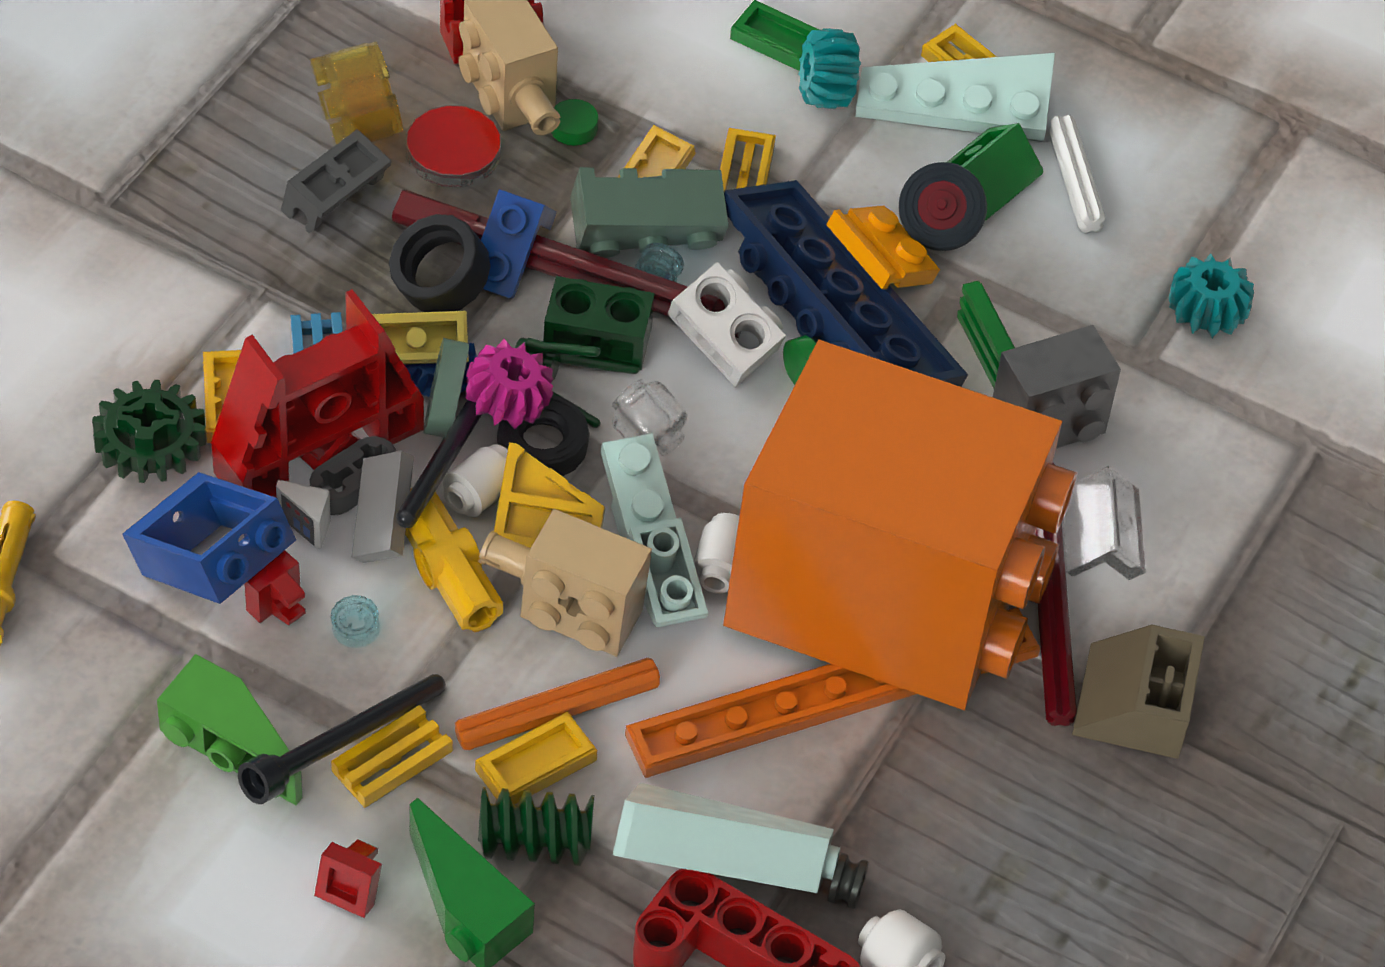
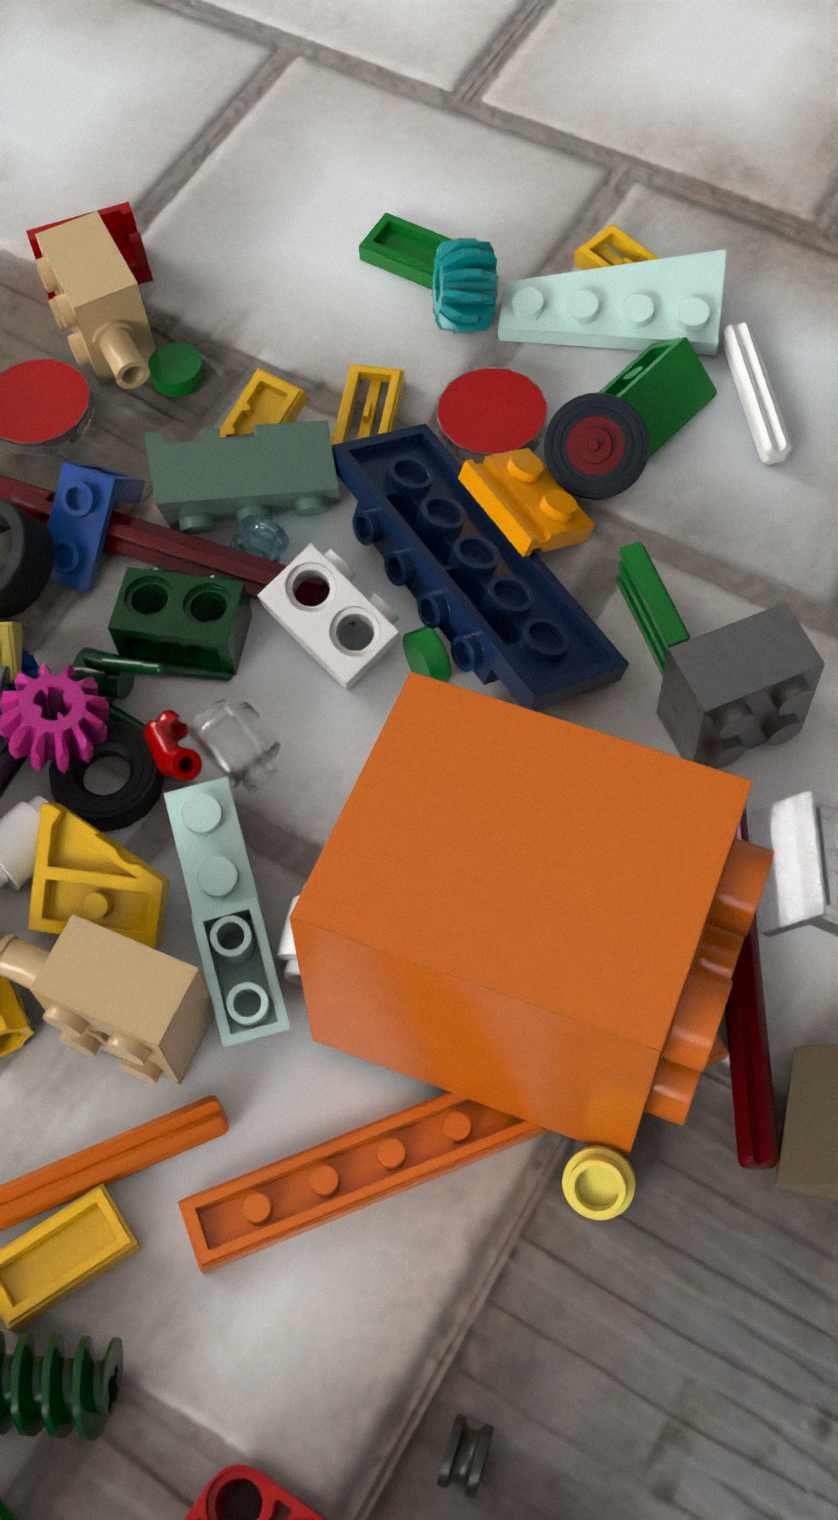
camera: 10 degrees right, 10 degrees up
(600, 423) = (163, 739): none -> red arm
(724, 839) = (280, 1411): light aqua slope -> none
(851, 175) = (491, 413): none -> red tile
(942, 723) = (599, 1182): none -> light yellow plate

